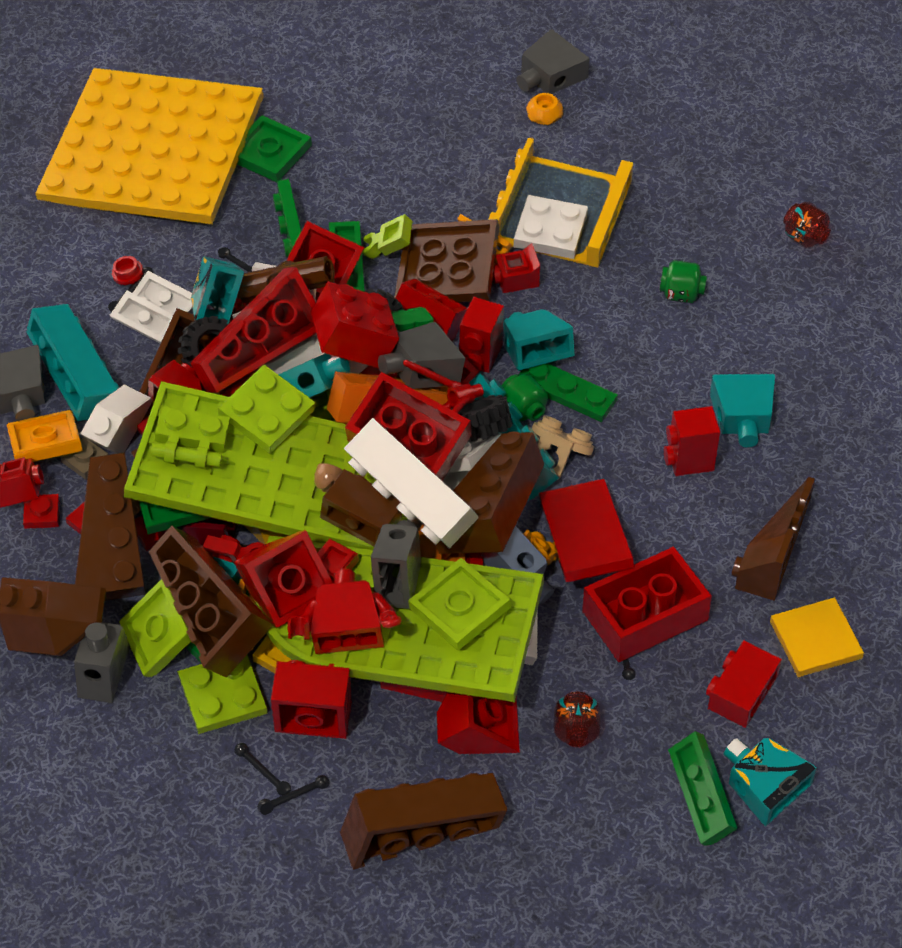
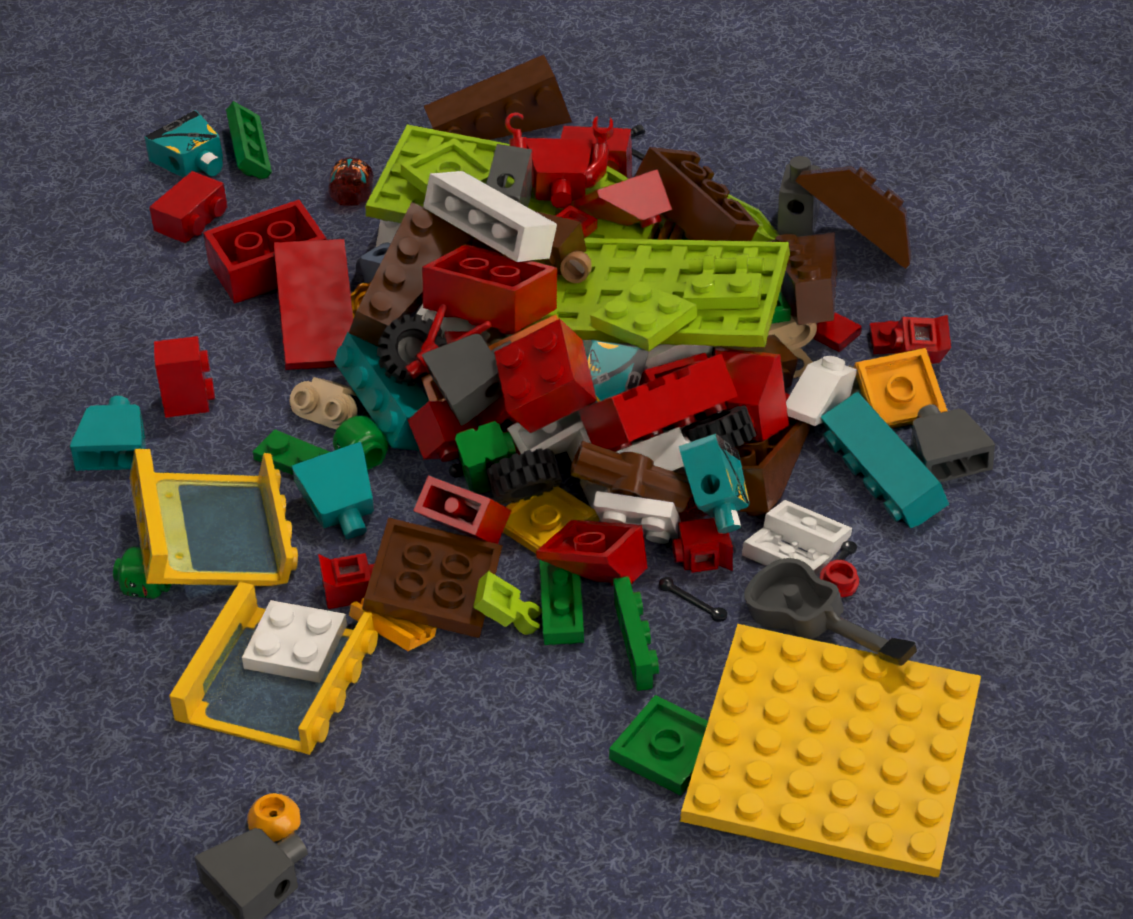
camera: 175 degrees left, 10 degrees down
(165, 247) = (795, 599): none -> dark grey piece
(482, 333) = (399, 476): red brick -> none
(637, 312) = (212, 526): none -> panel
(769, 551) = (125, 301): reddish brown wedge -> none
(816, 637) = (107, 254): yellow tile -> none

